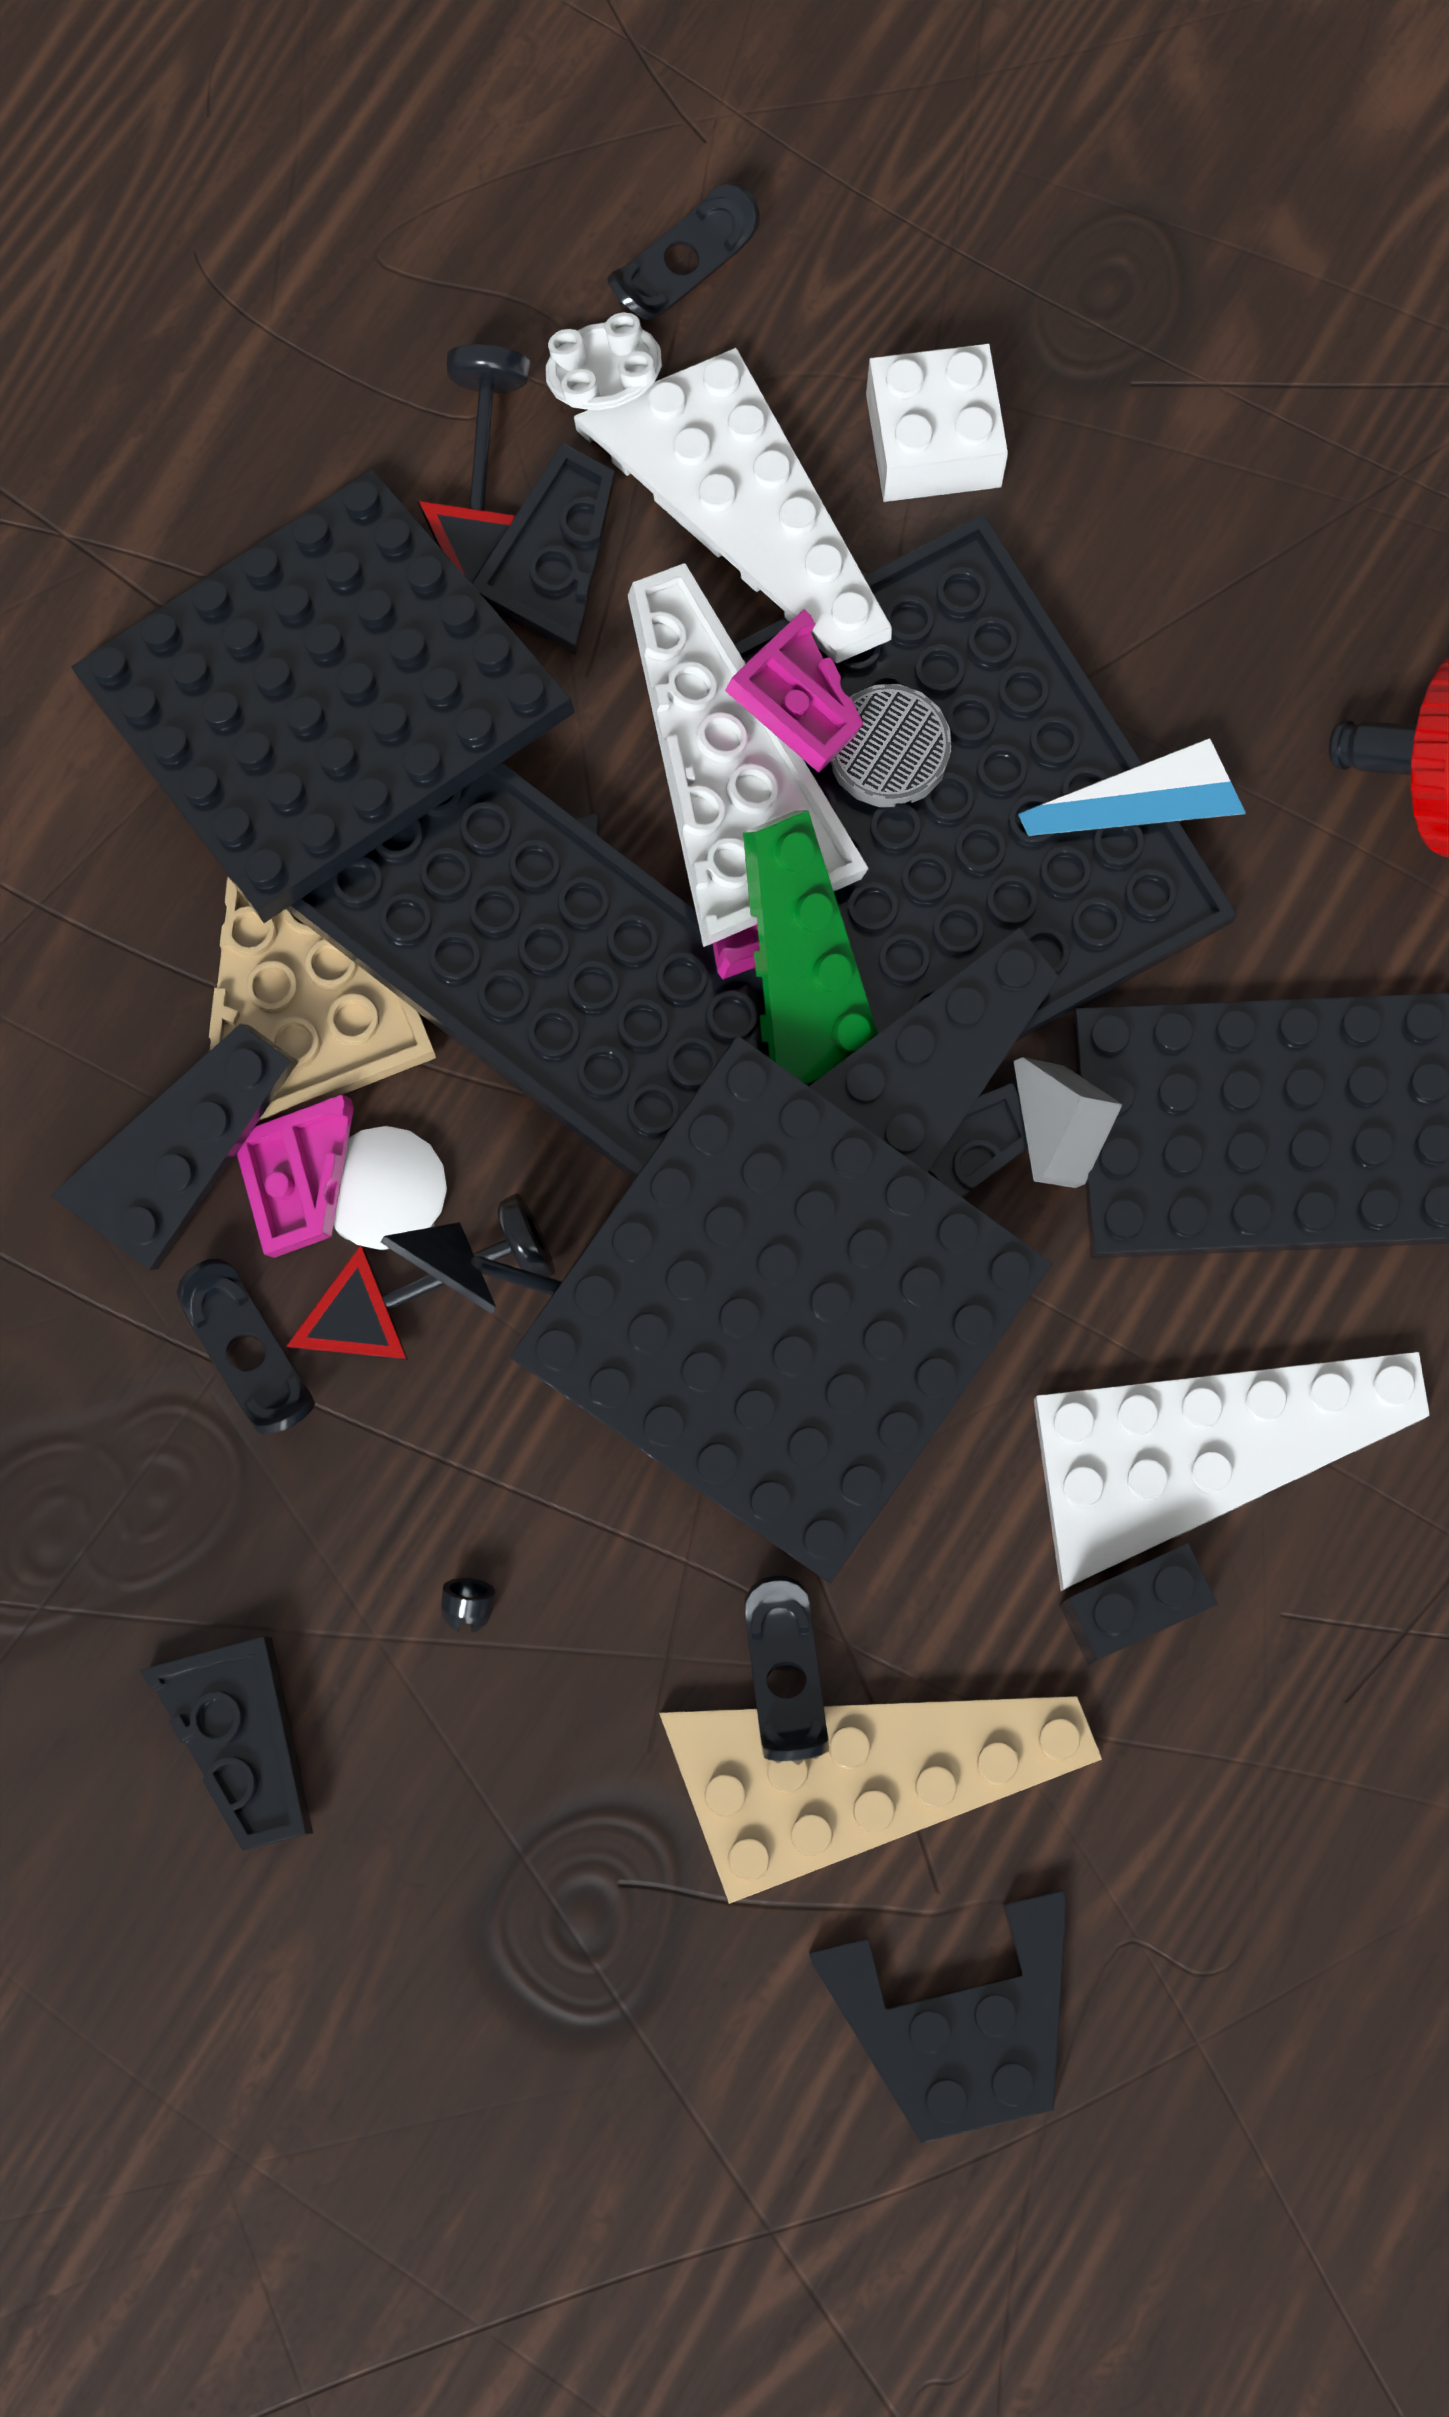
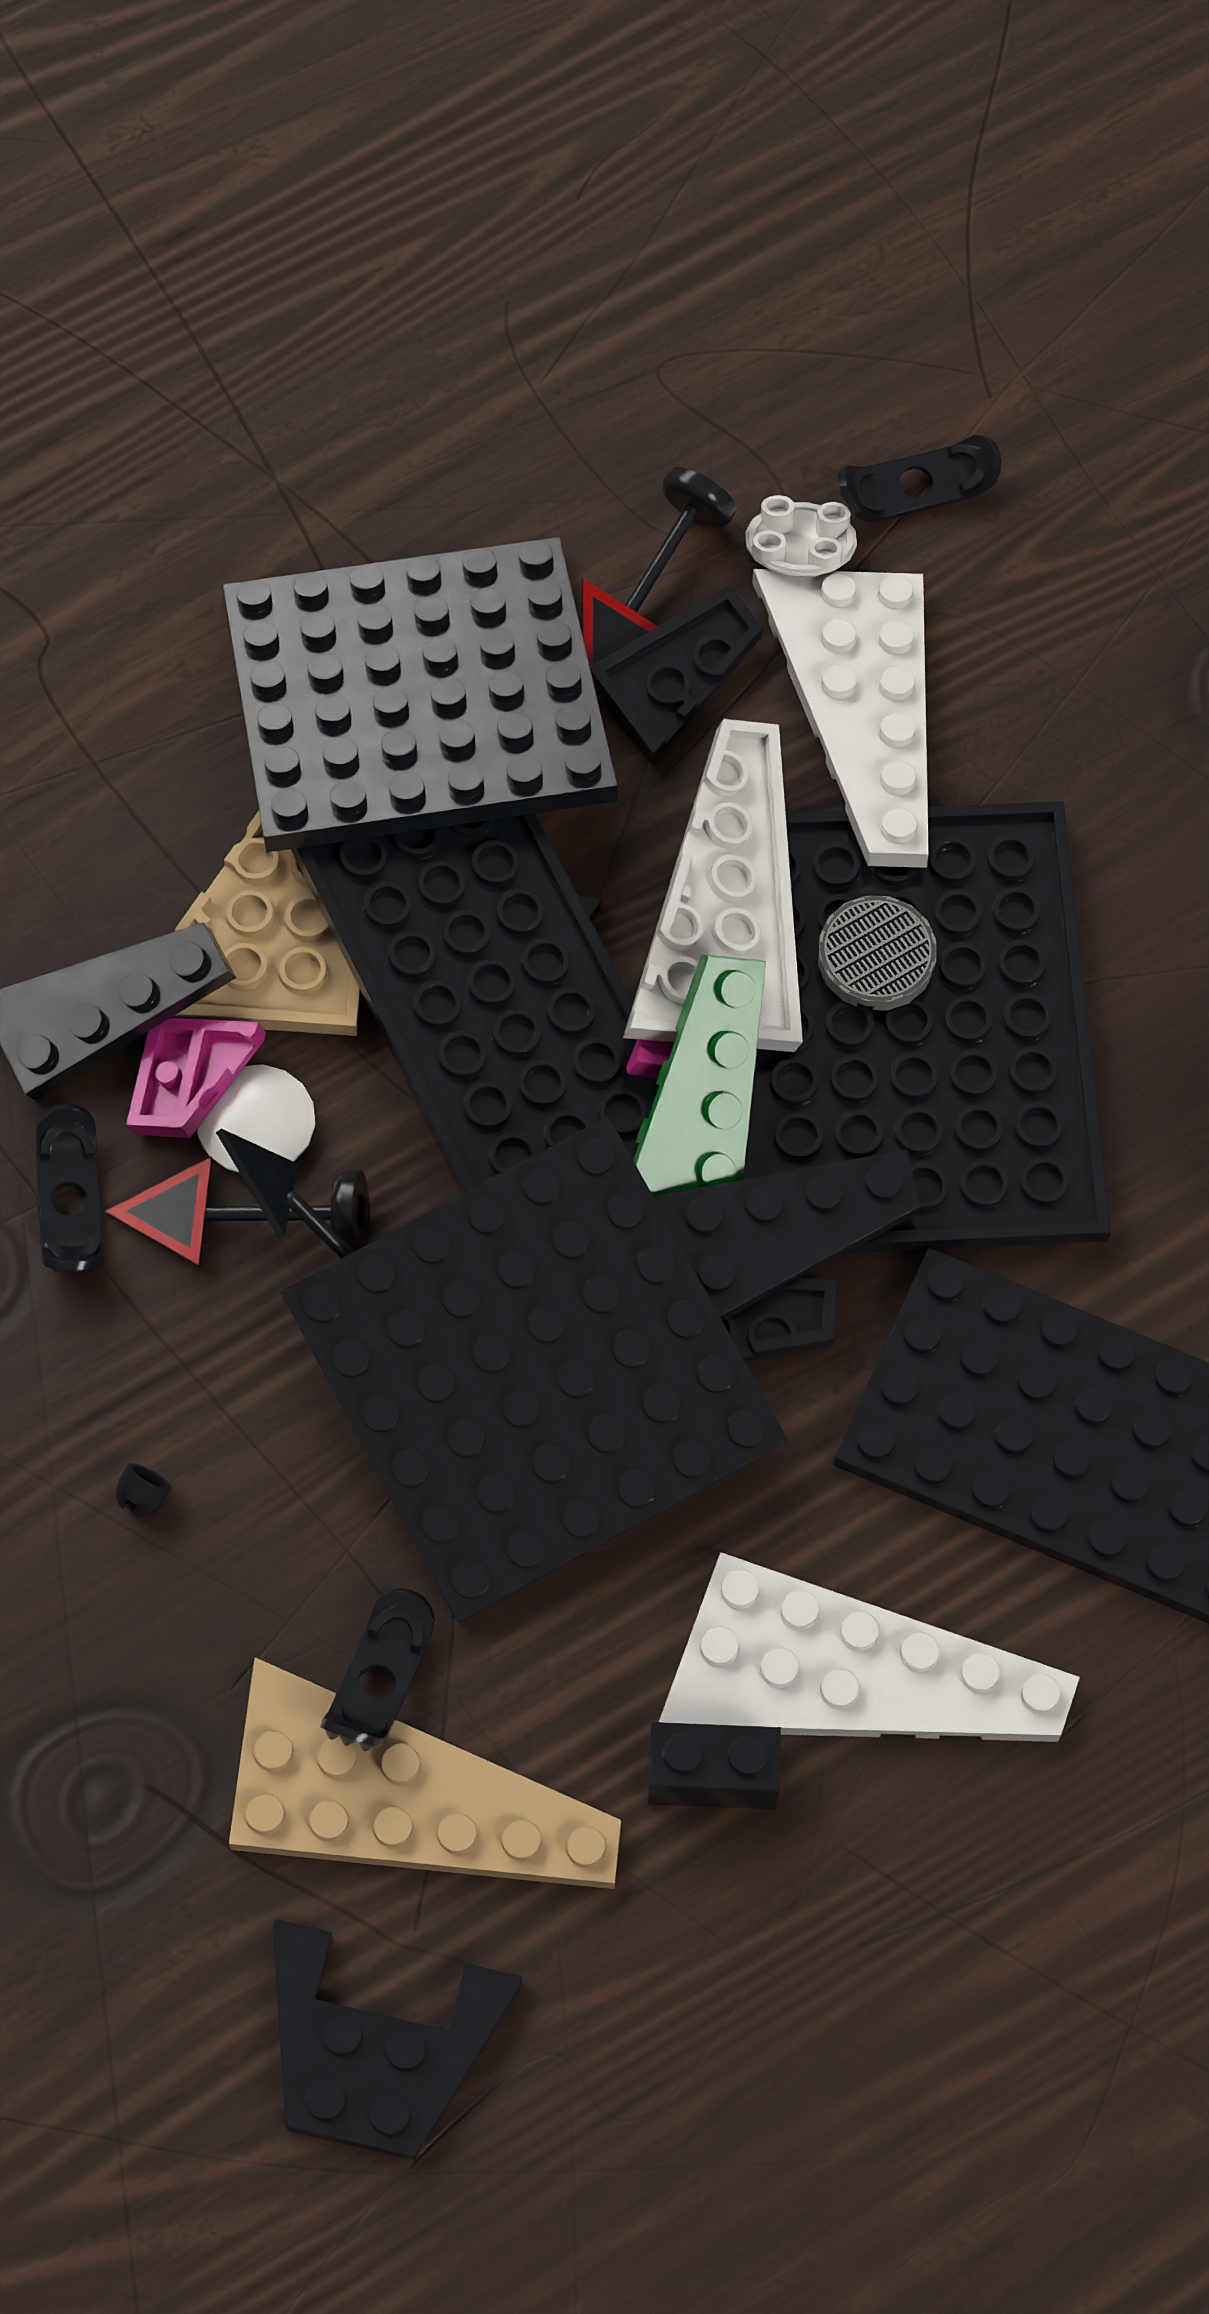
camera: 25 degrees right, 10 degrees down
(798, 694) = (815, 871): dark pink wing -> none
(936, 422) = (1062, 709): white brick -> none
(1063, 1121) = (863, 1333): light grey slope -> none
(1164, 790) = (1109, 1101): dark azure sticker -> none

